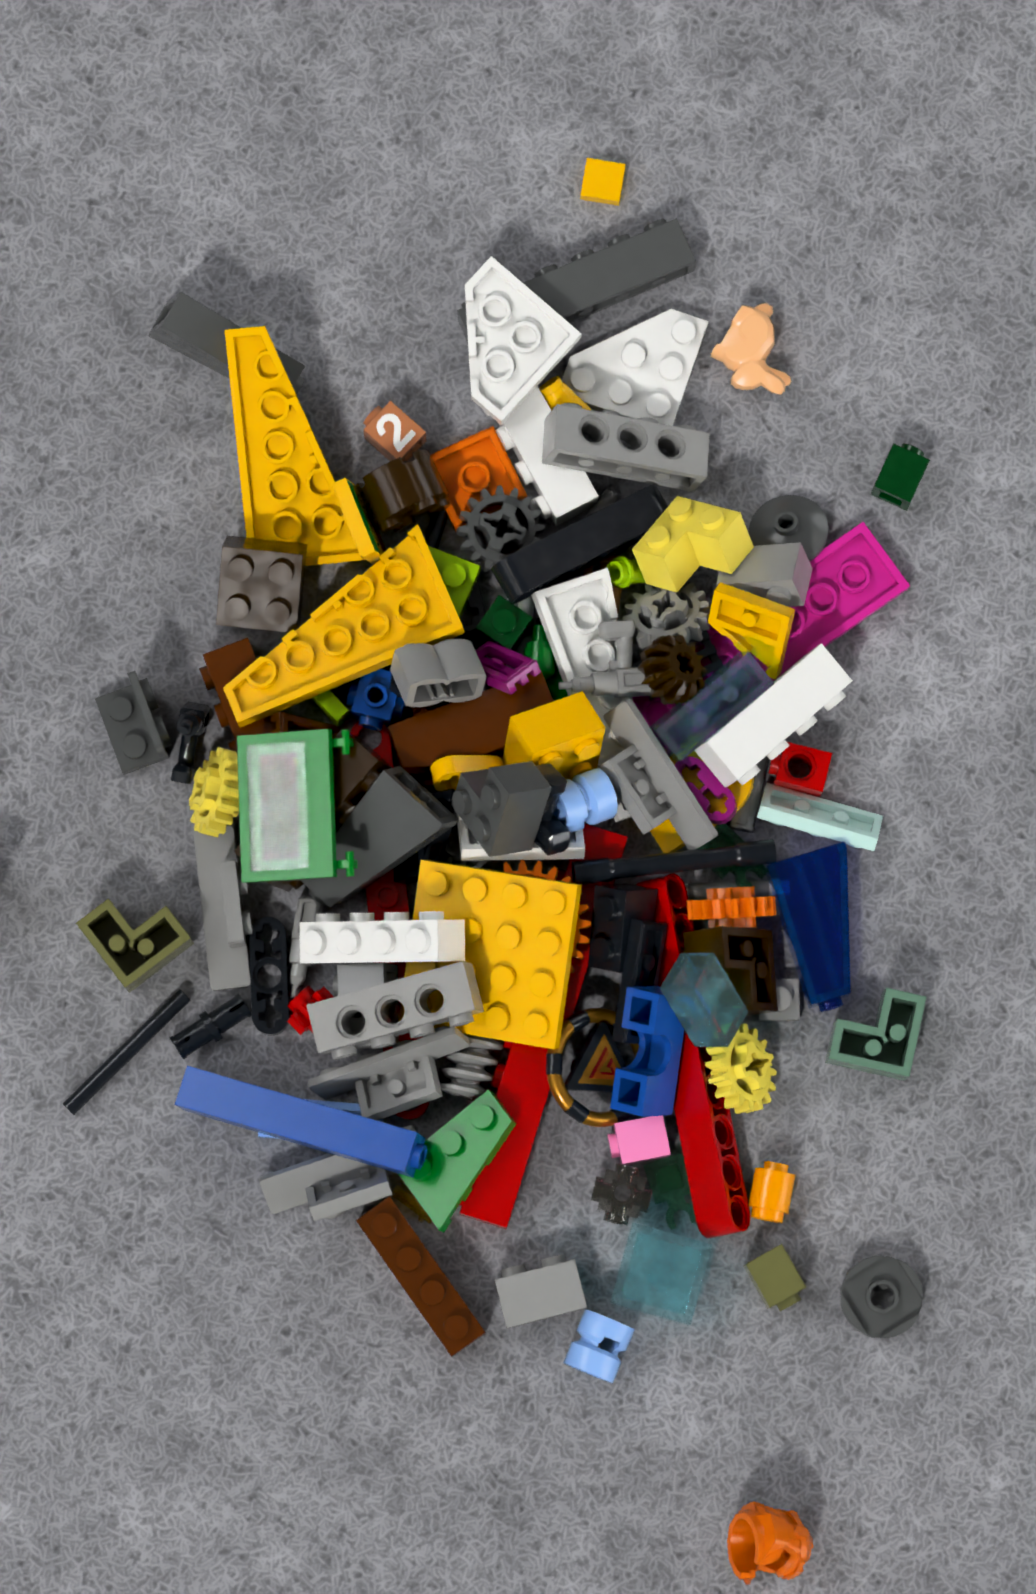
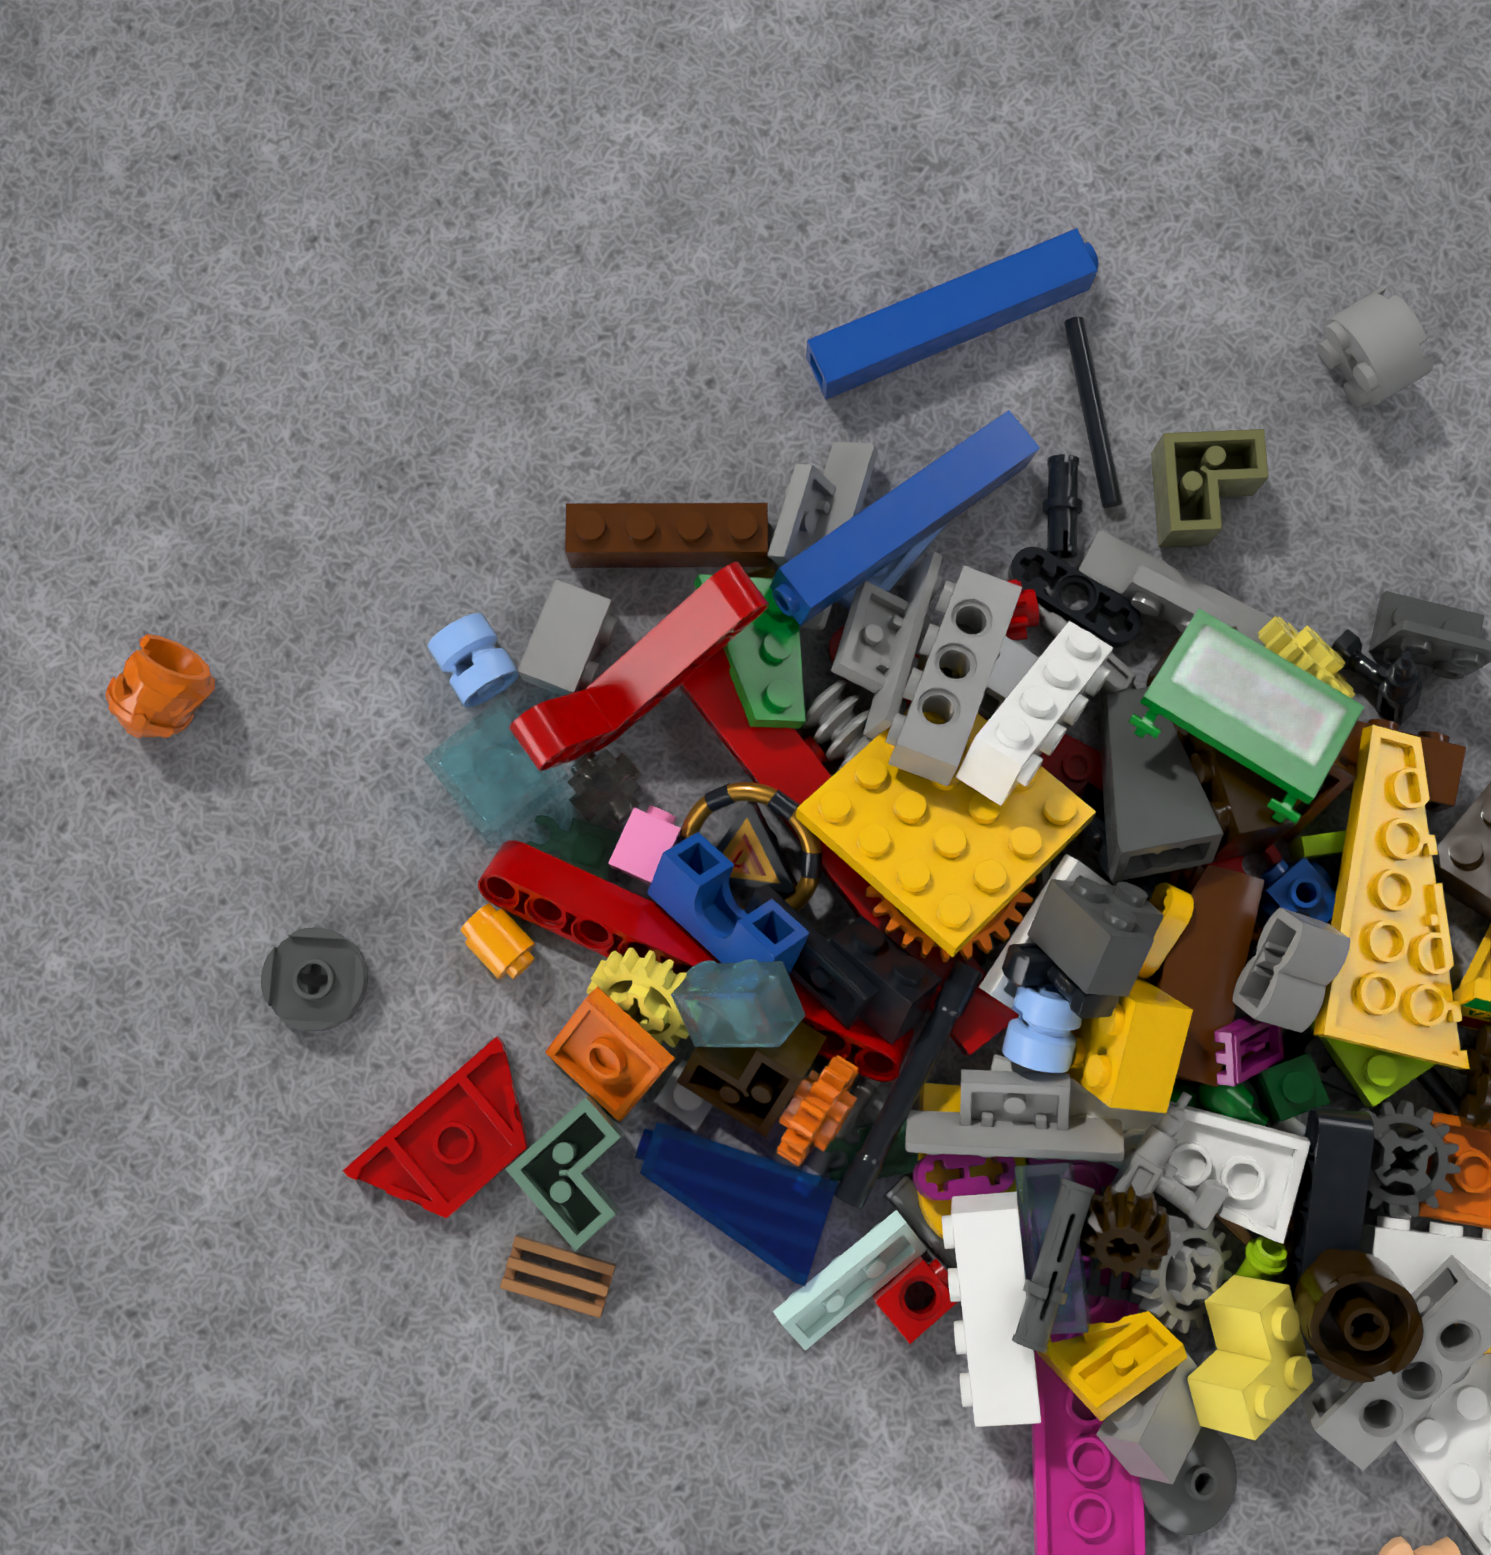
camera: 130 degrees right, 0 degrees up
(124, 1194) = (951, 313): none -> blue brick
(534, 1218) = (644, 675): none -> red beam
(622, 499) = (1357, 1315): none -> dark brown brick
(724, 698) = (1053, 1266): none -> dark grey pin
(775, 1278) = (411, 884): olive brick -> none
(791, 1066) = (609, 1054): none -> orange tile
(916, 1131) = (451, 1138): none -> red wing
(939, 969) = (551, 1296): none -> medium nougat tile

